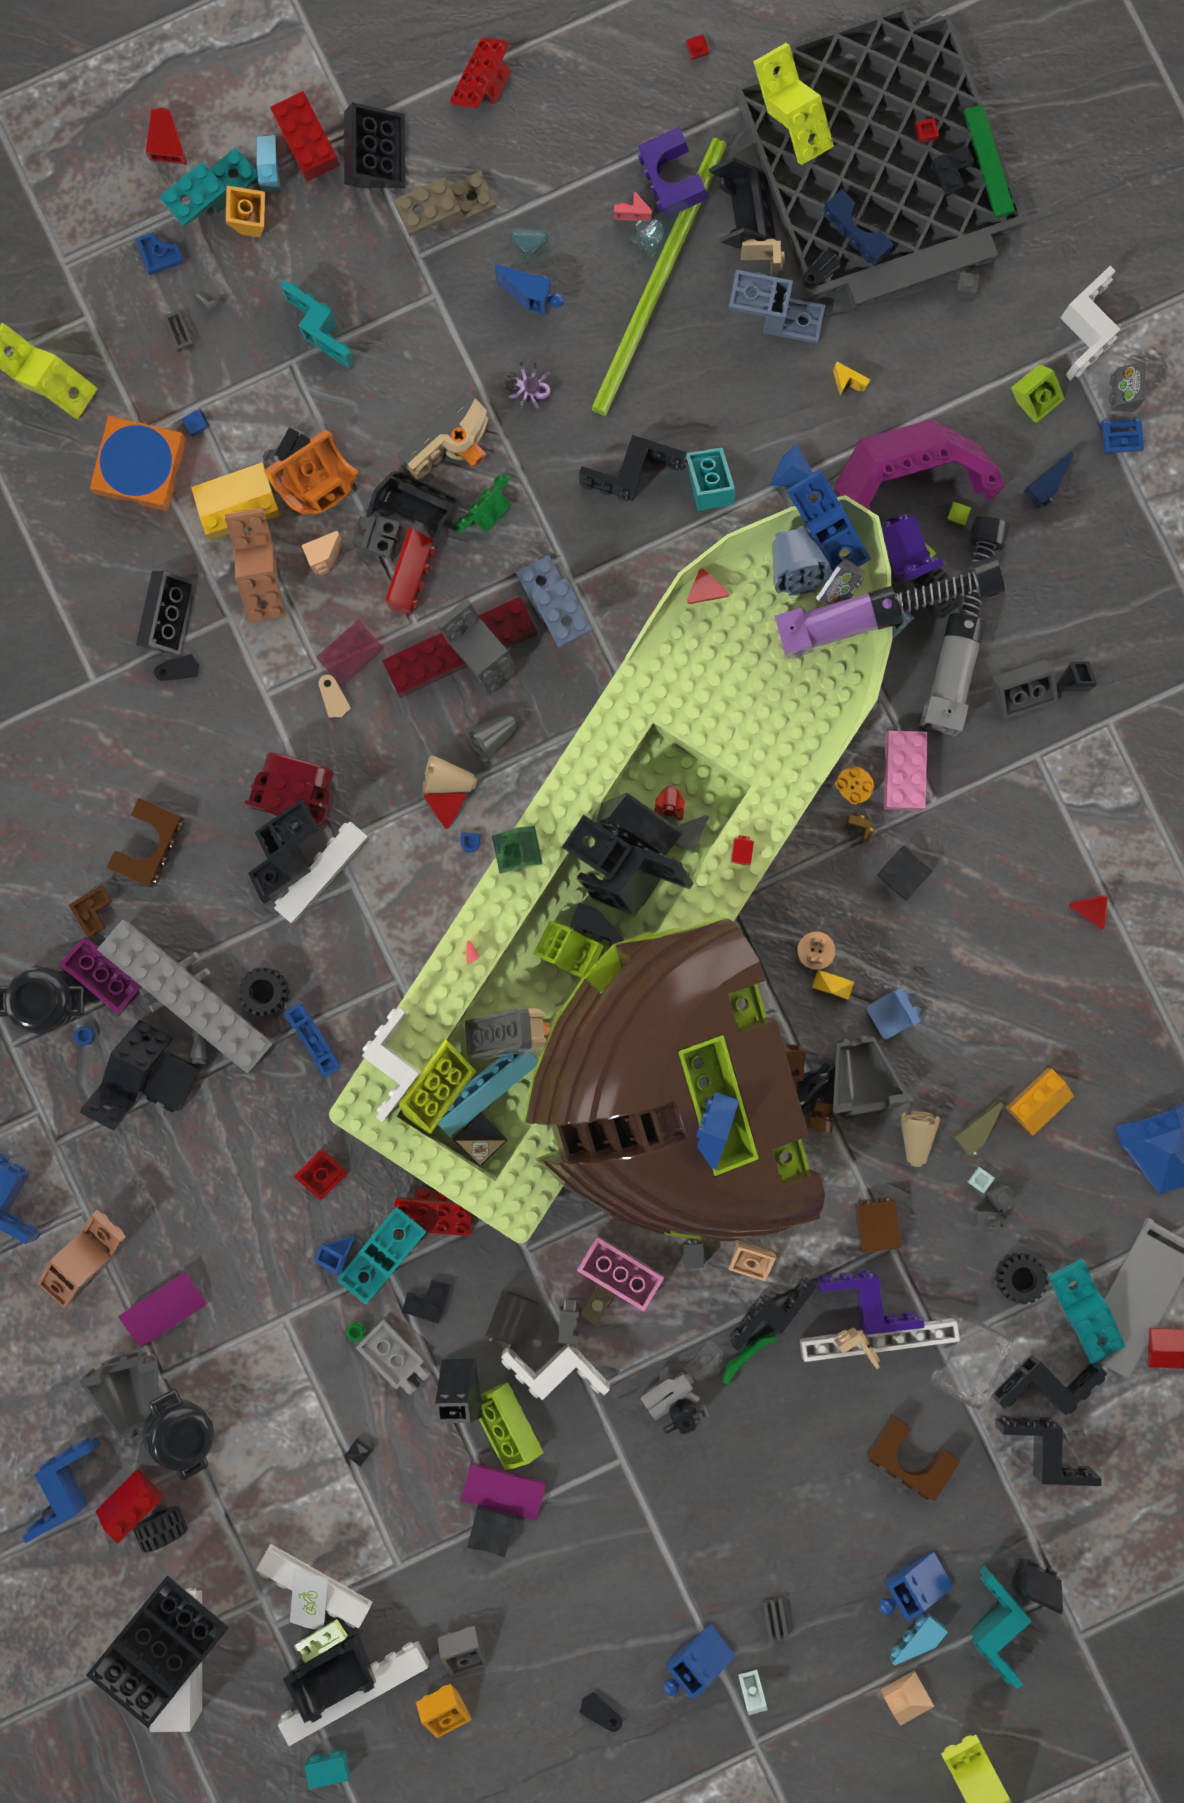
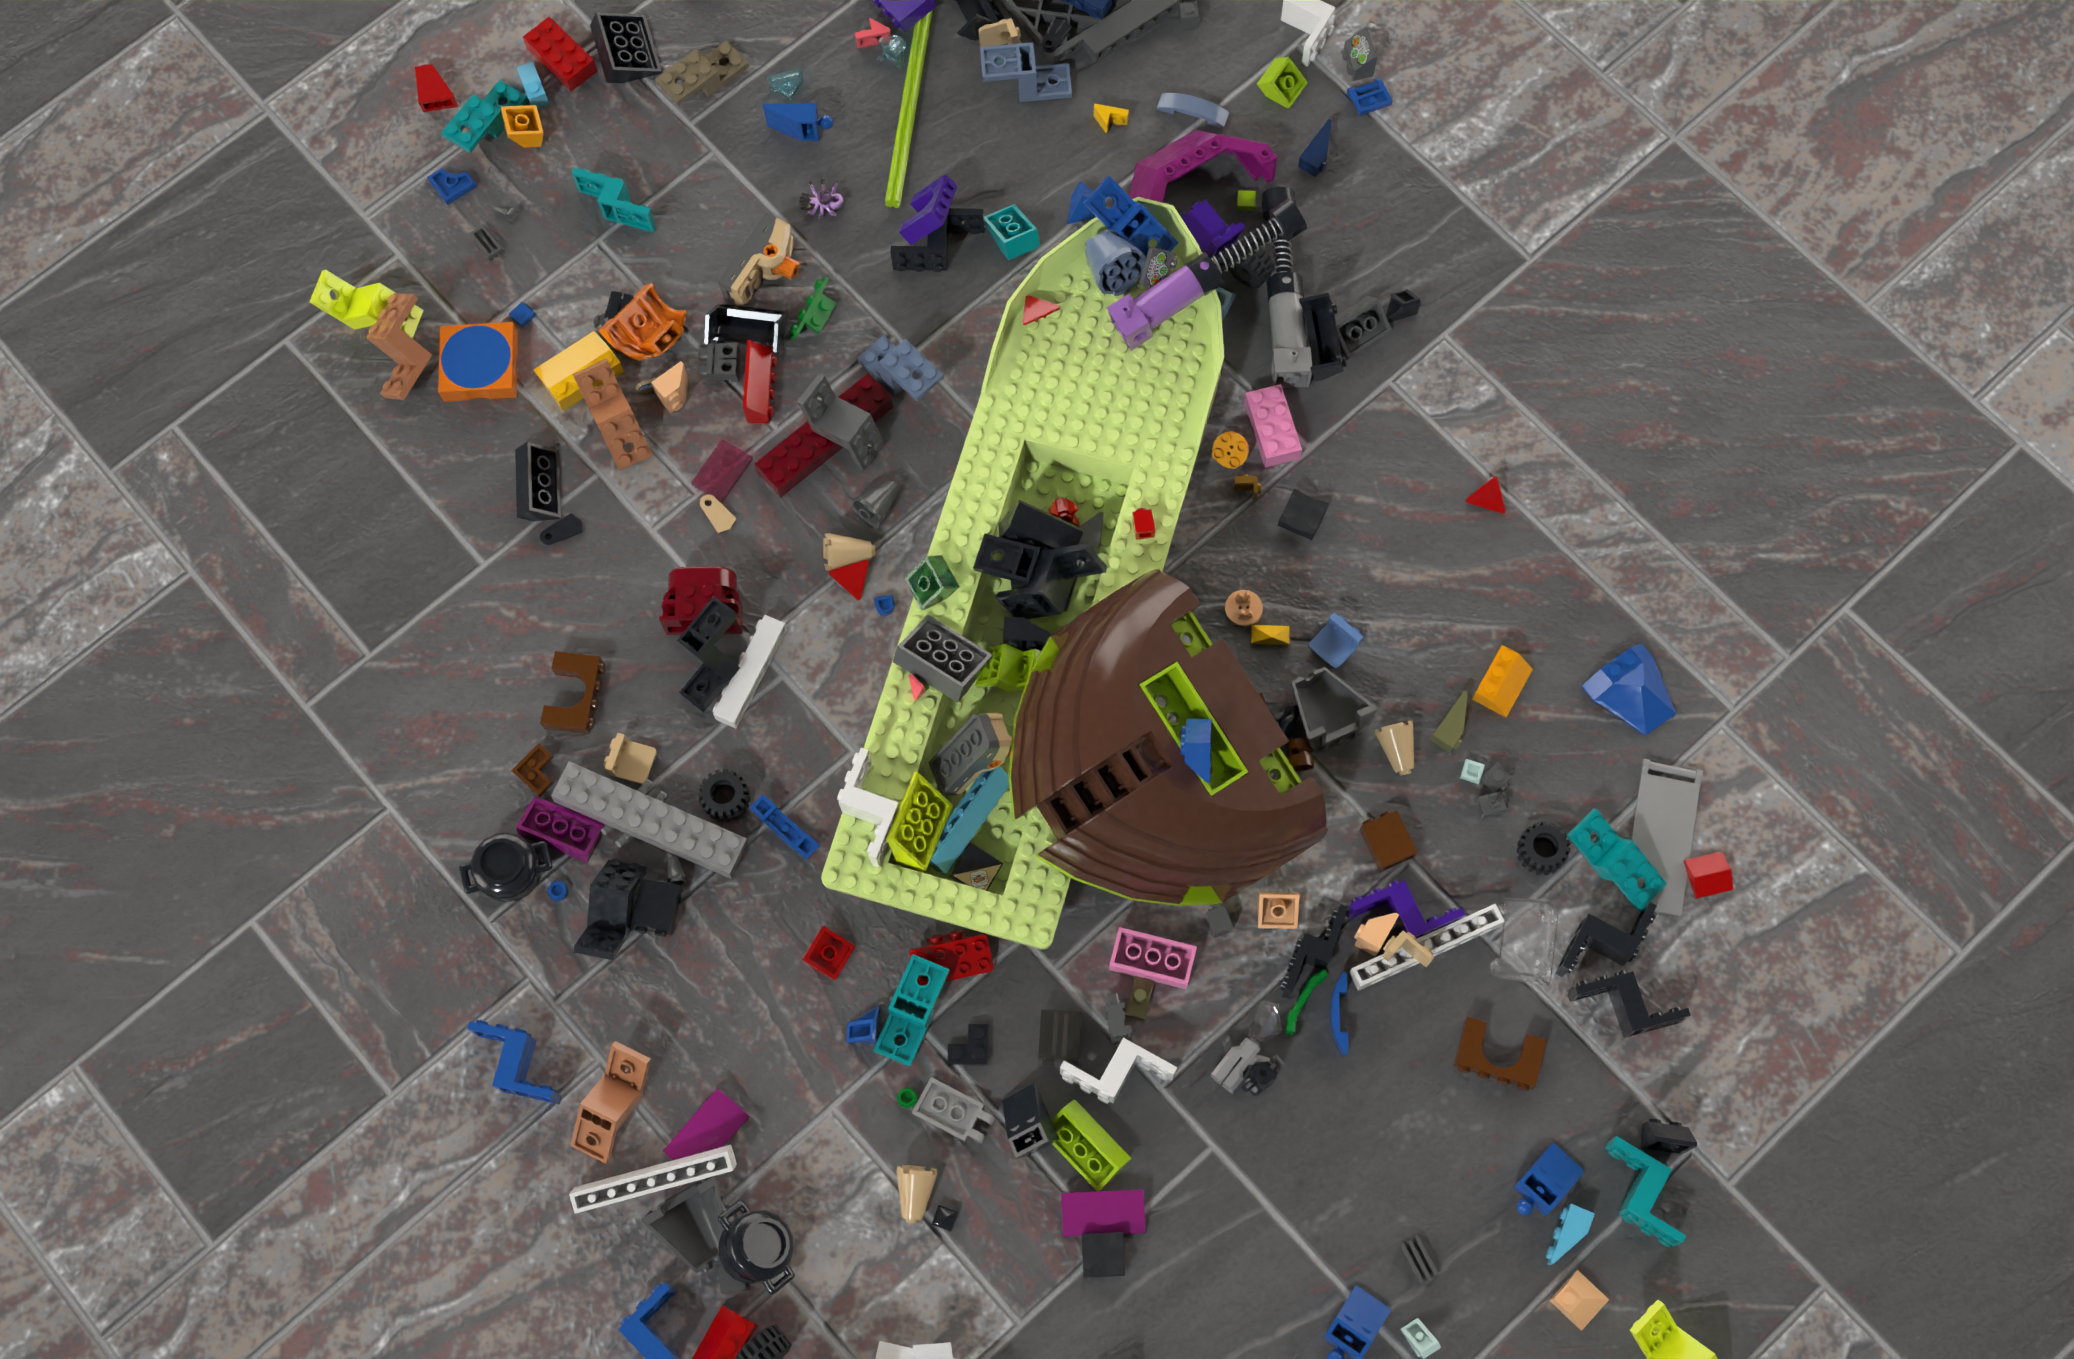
camera: 15 degrees left, 15 degrees down
(50, 413) = (398, 346): none -> nougat bracket
(102, 1342) = (653, 1179): none -> white brick
(183, 927) = (629, 759): none -> tan bracket
(299, 541) = (645, 386): none -> dark tan arm
(338, 1420) = (914, 1190): none -> tan cone
(505, 930) = (941, 658): none -> dark grey slope
(643, 426) = (931, 207): none -> dark purple arch
(784, 1352) = (1340, 1038): none -> blue slope
(836, 1313) = (1373, 934): none -> light nougat slope
(938, 394) = (1193, 106): none -> sand blue slope
(985, 698) = (1323, 336): none -> black windscreen

